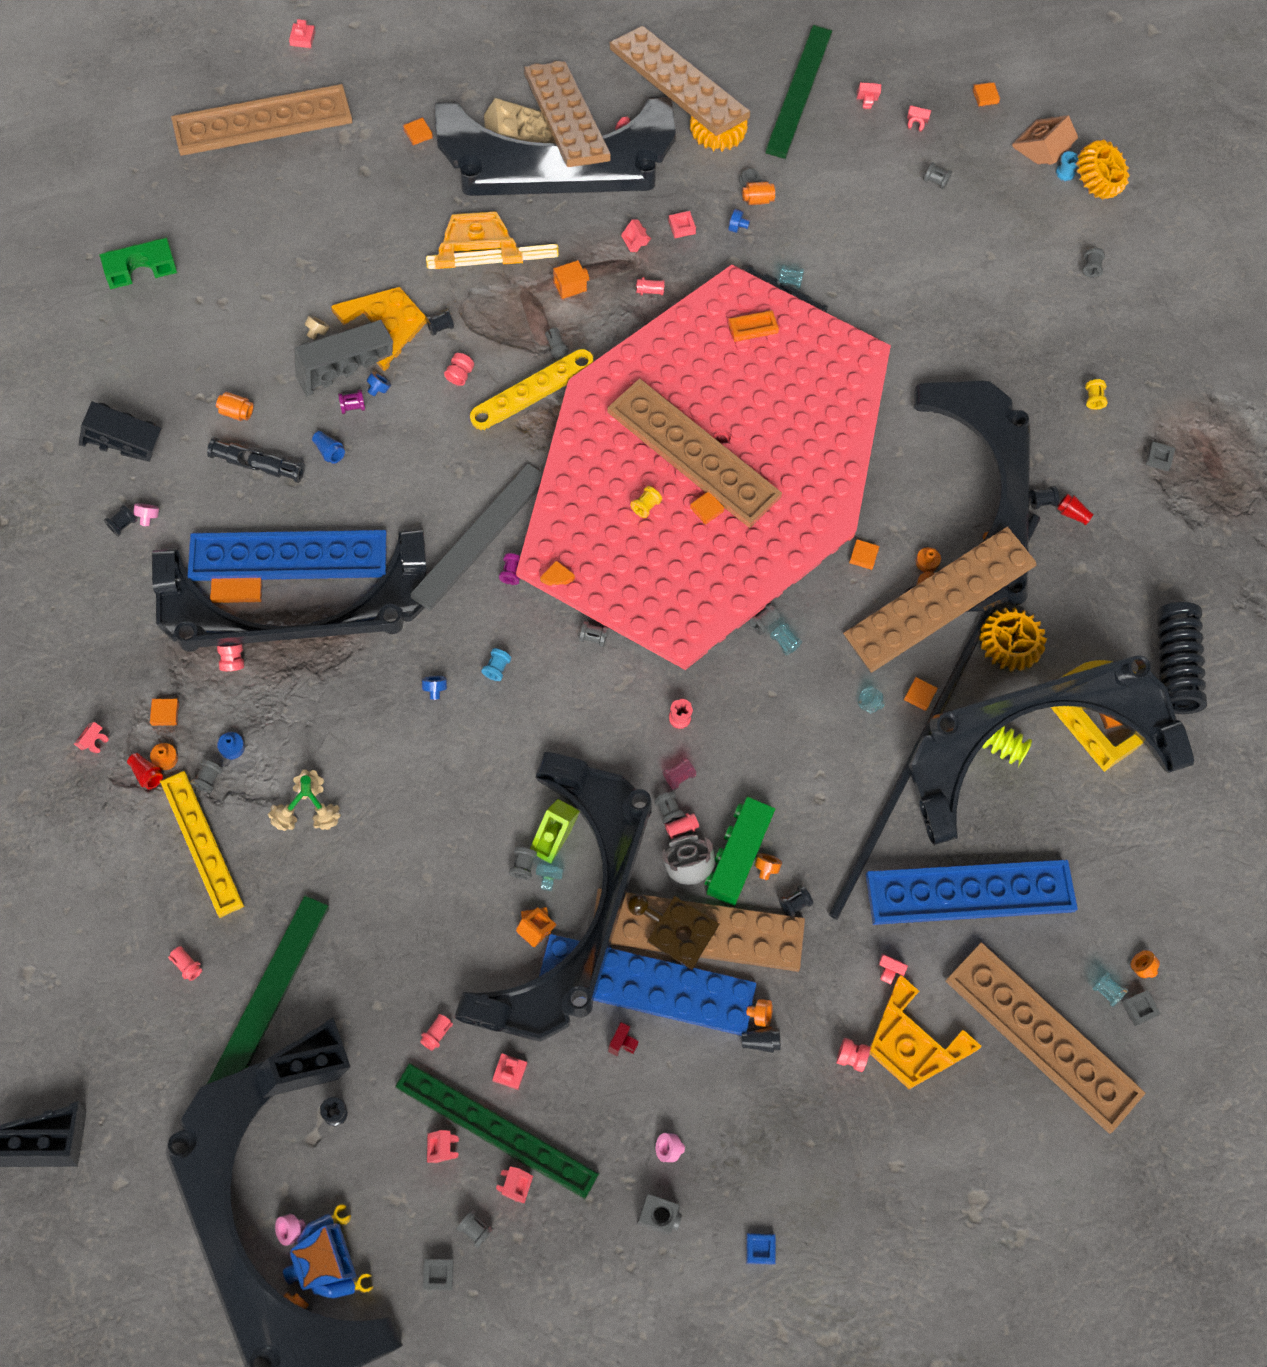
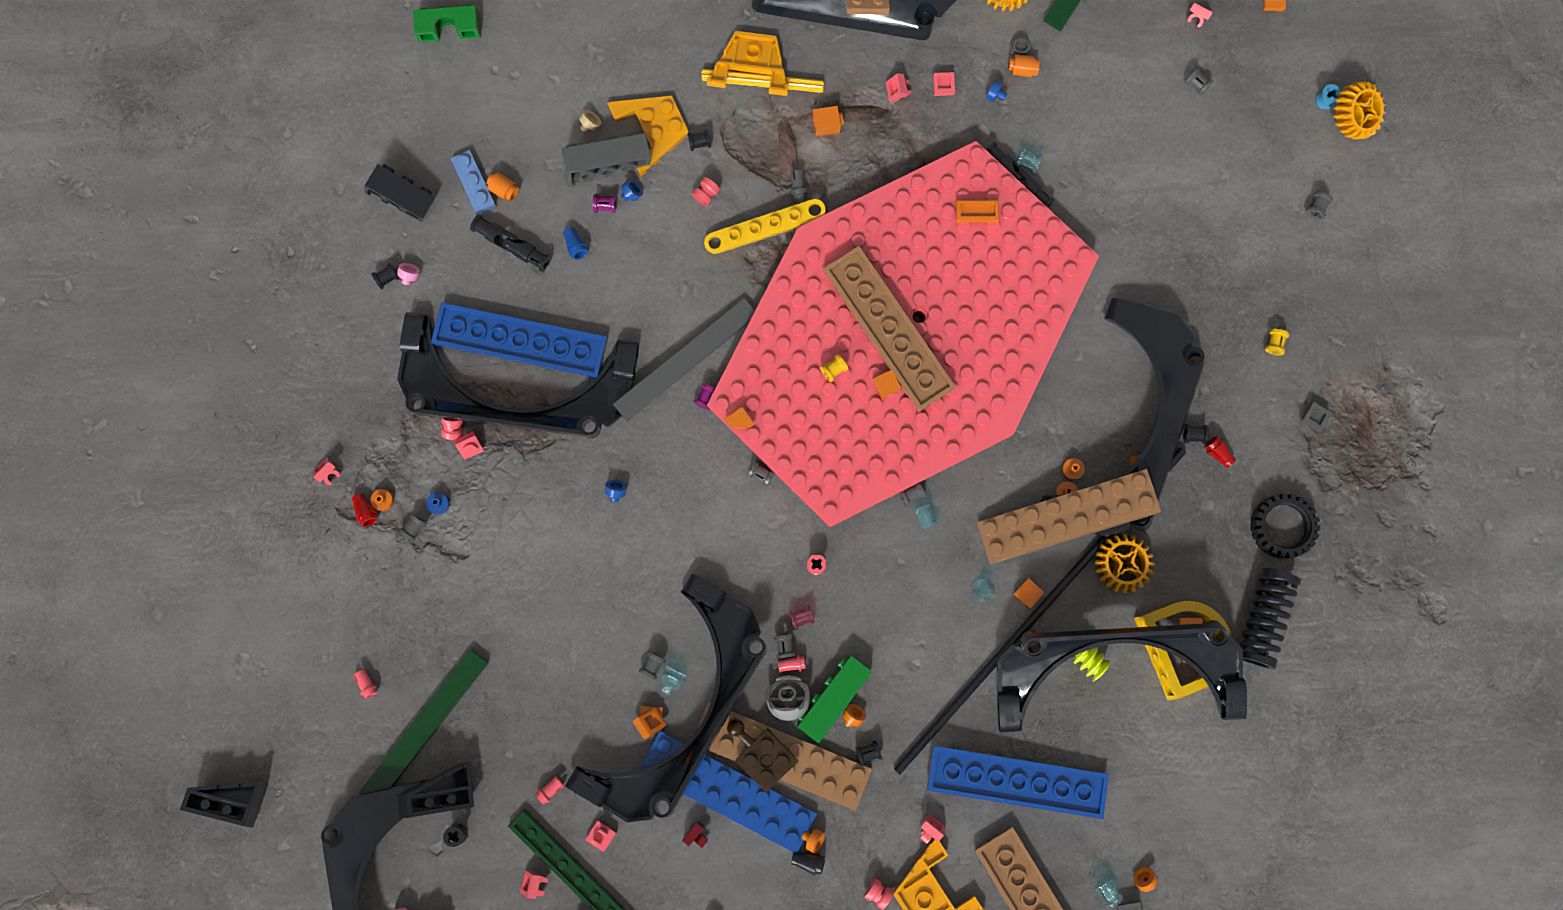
camera: 20 degrees right, 15 degrees up
(164, 712) = (389, 460): orange tile -> none
(200, 410) = (473, 182): none -> medium blue plate
(202, 844) = (398, 583): yellow tile -> none
(236, 590) = (470, 362): orange tile -> none
(254, 674) = (468, 445): none -> coral plate
(307, 786) = (492, 555): tan plant -> none
(496, 664) = (672, 483): dark azure bush -> none
(554, 830) = (684, 643): lime slope -> none
(649, 286) = (897, 143): coral pin -> none
(864, 554) = (1017, 451): orange tile -> none
(1047, 139) = (1316, 63): nougat slope -> none
(1177, 546) = (1307, 514): none -> black tyre

